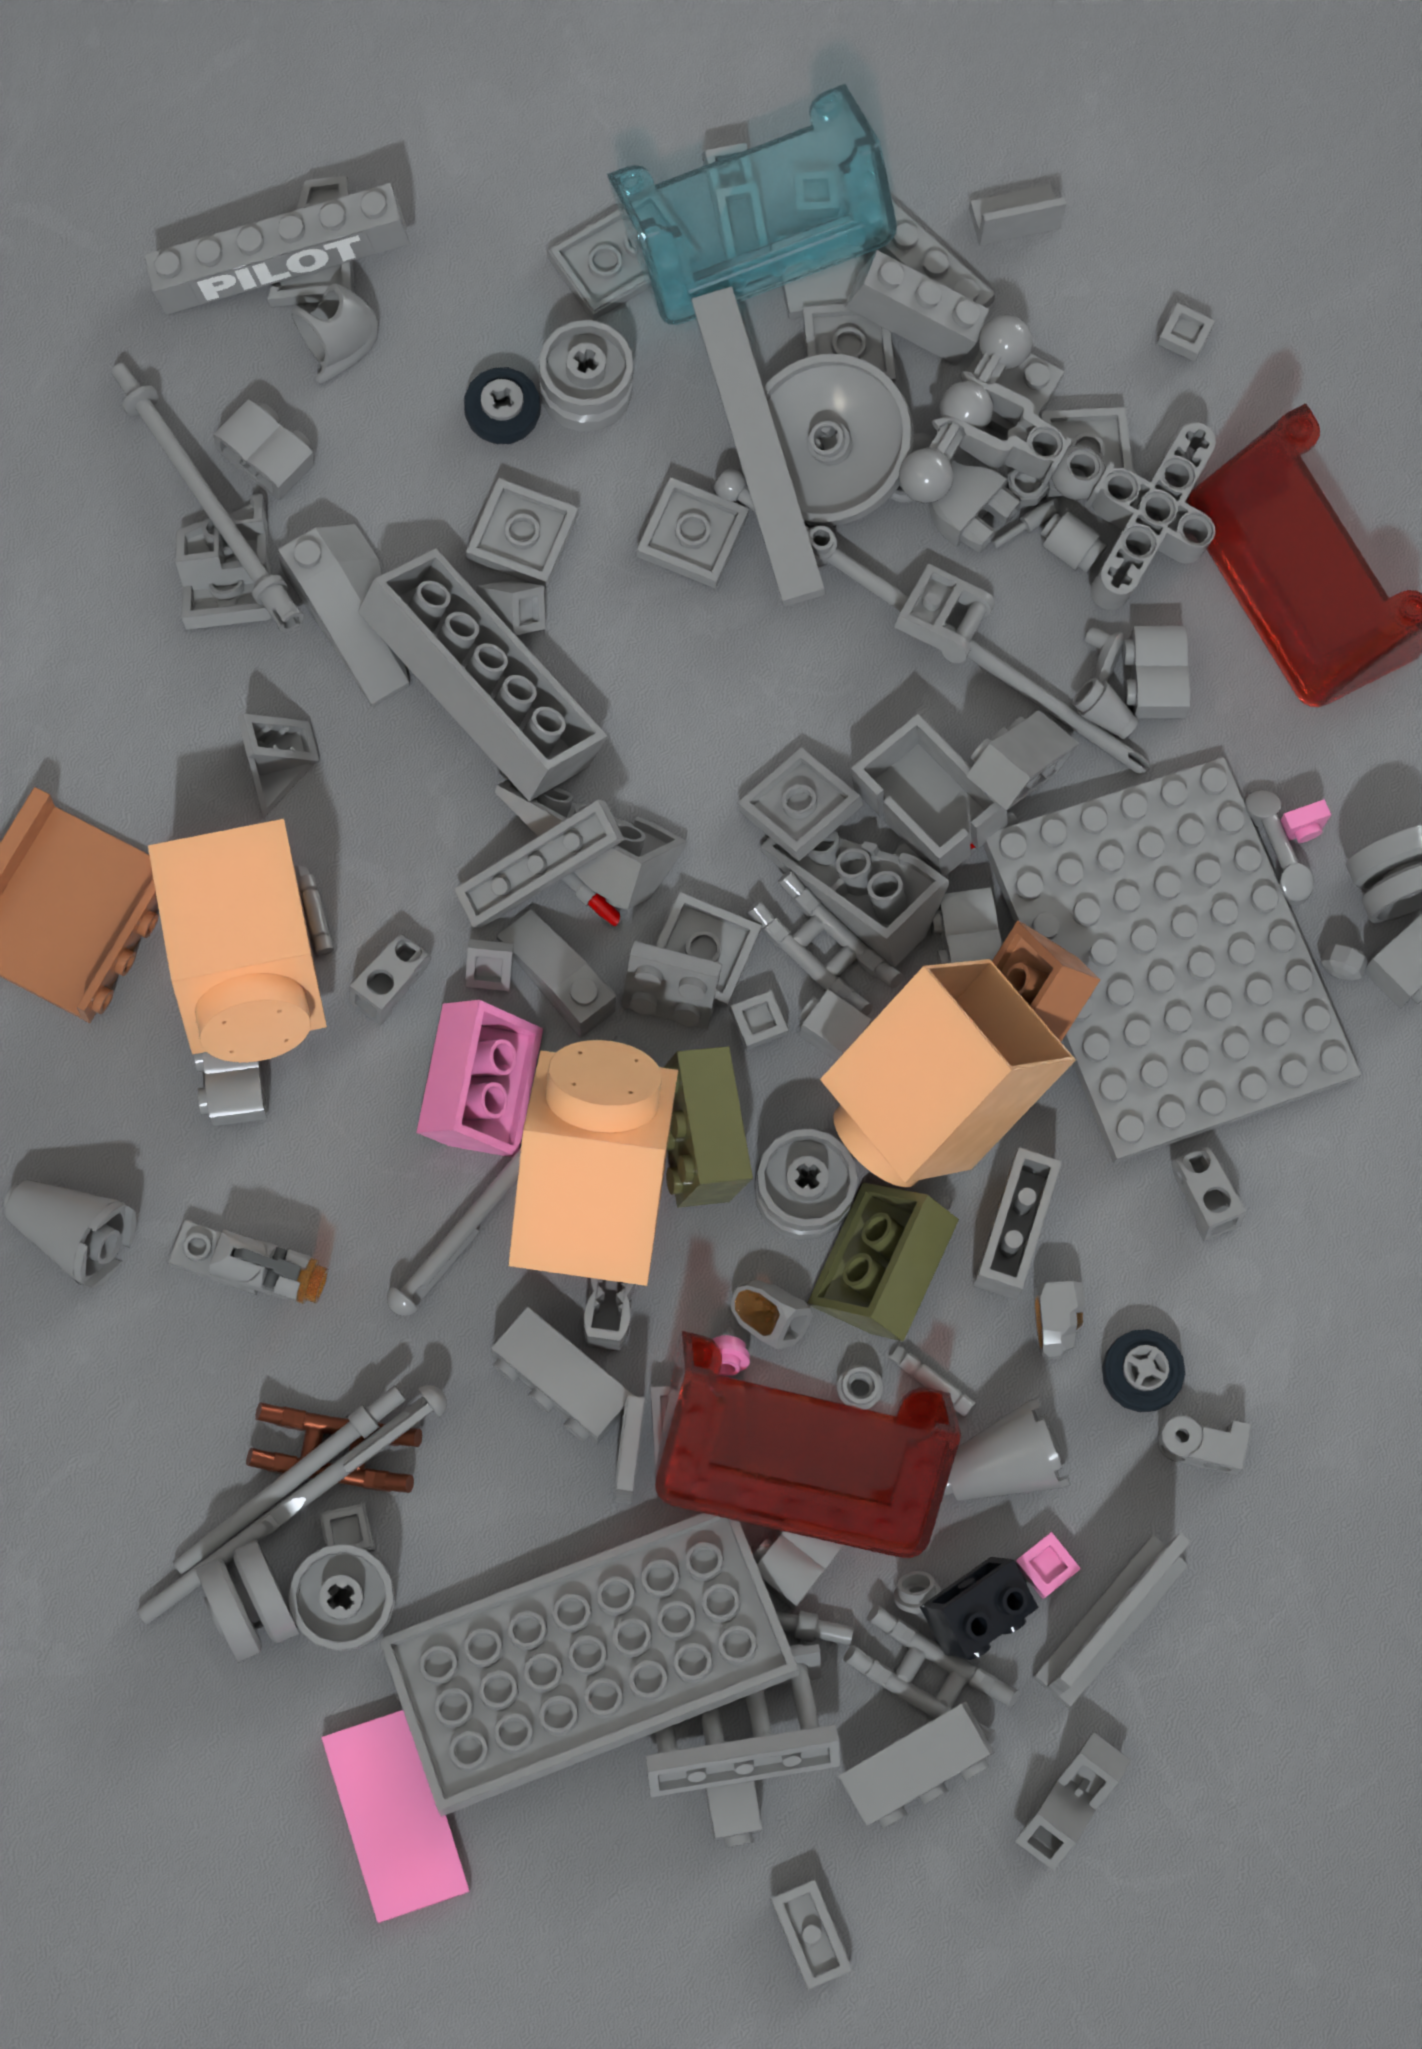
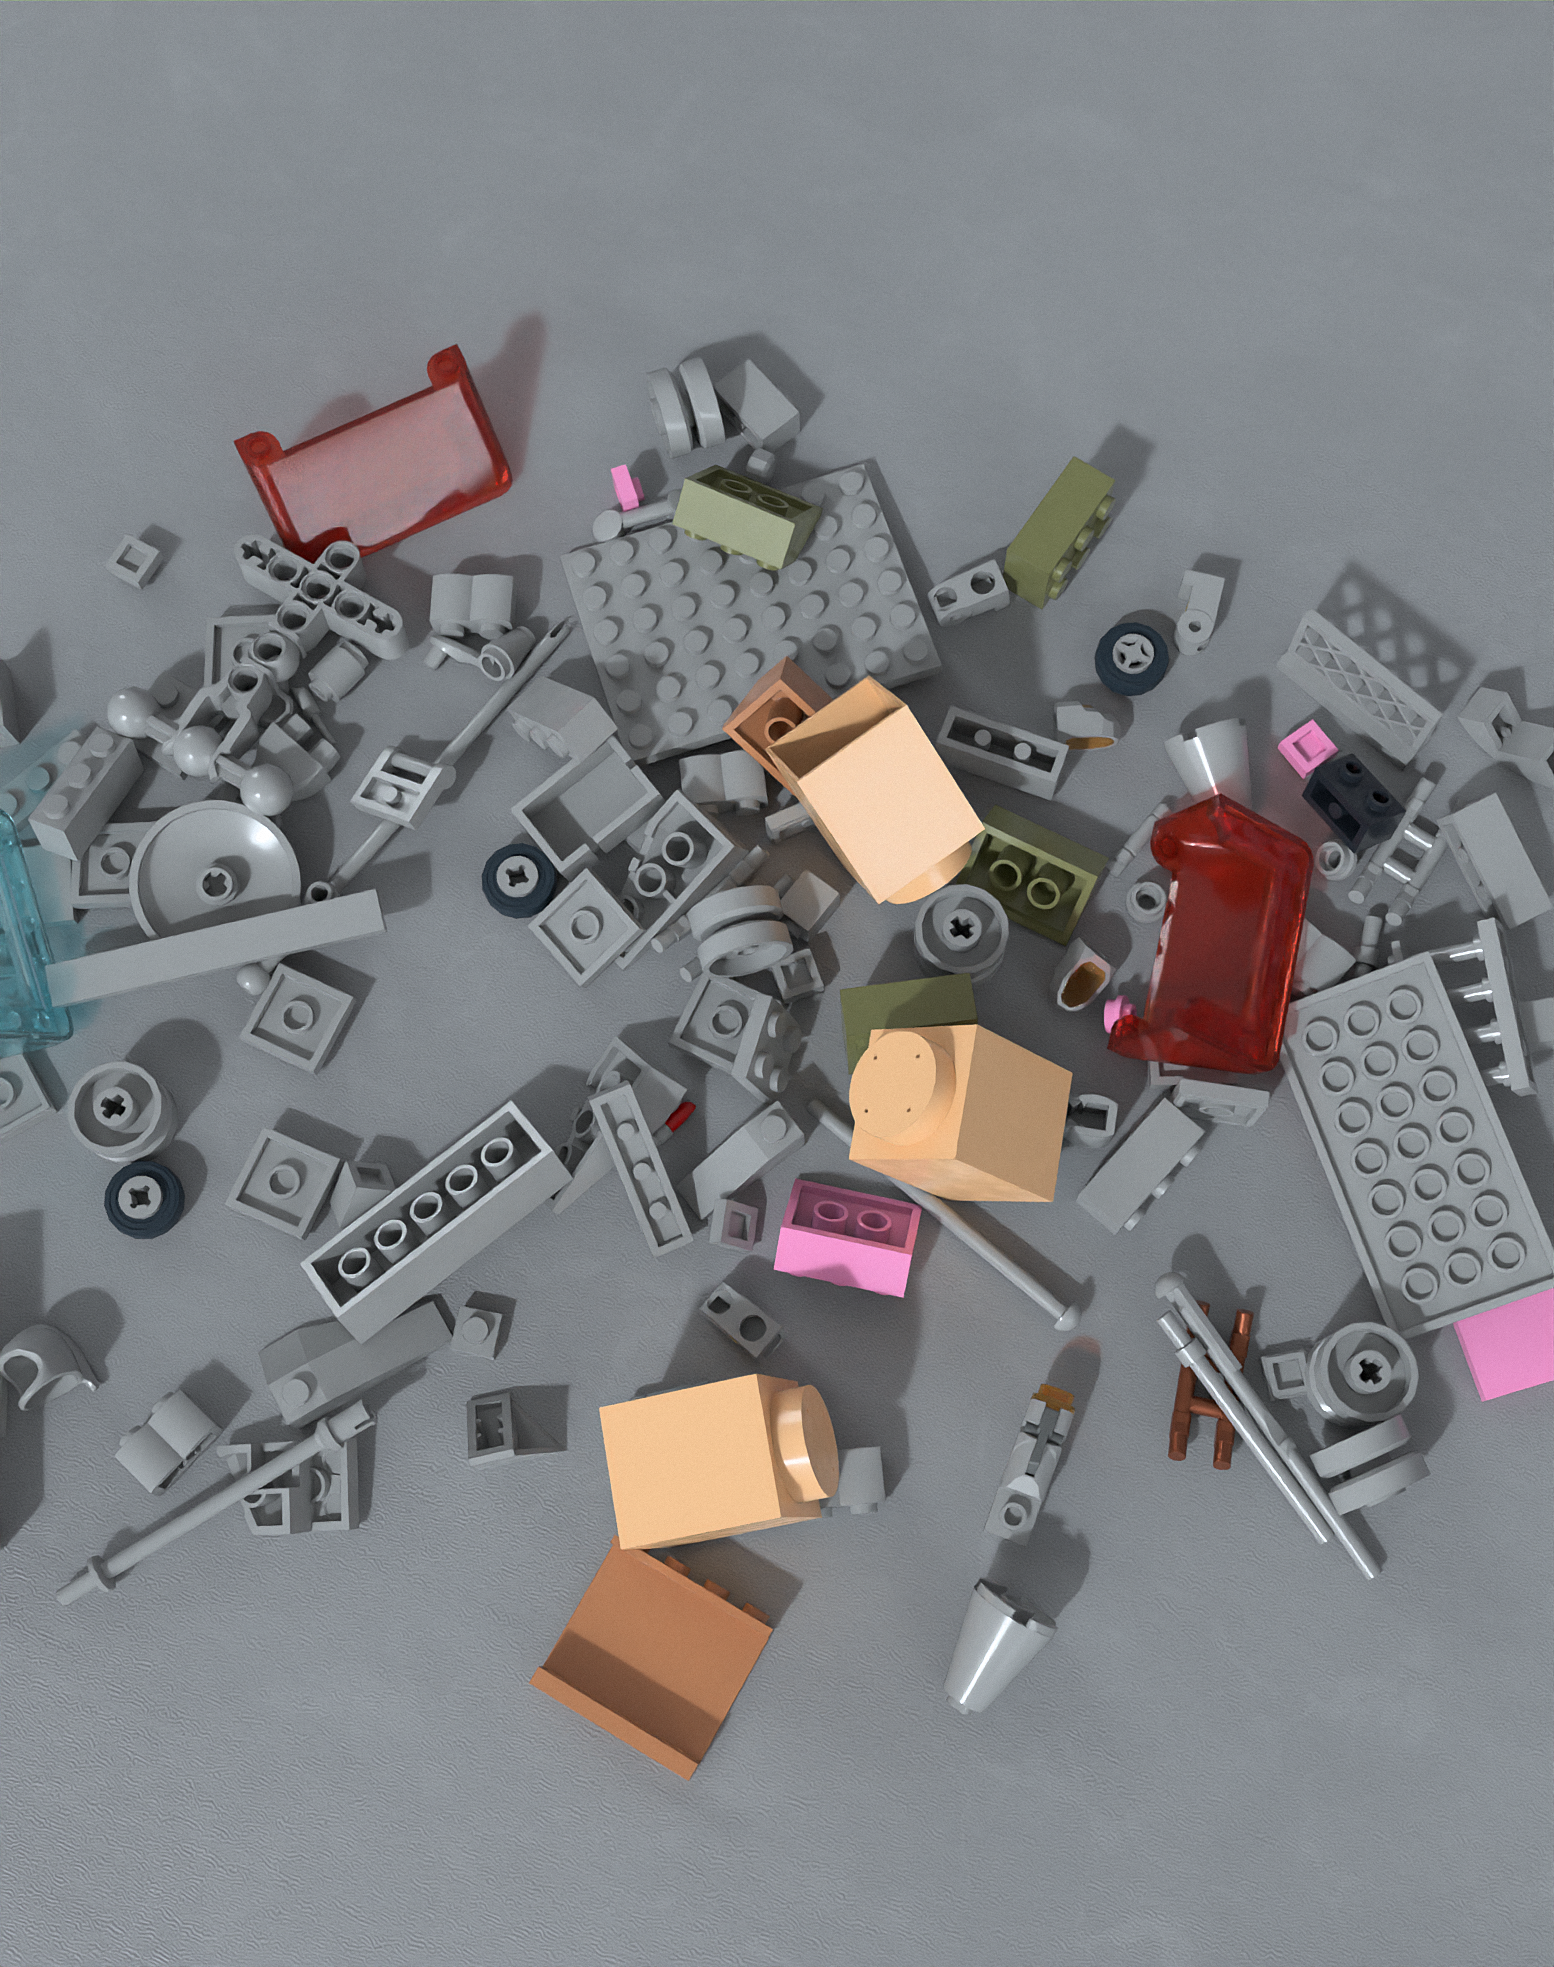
camera: 75 degrees left, 0 degrees up
(377, 726) = (477, 1332): none -> light grey plate
(792, 948) = (740, 931): none -> light grey wheel
(842, 751) = (521, 895): none -> black wheel
(1277, 942) = (745, 516): none -> slope
(1282, 1282) = (1059, 533): none -> olive brick

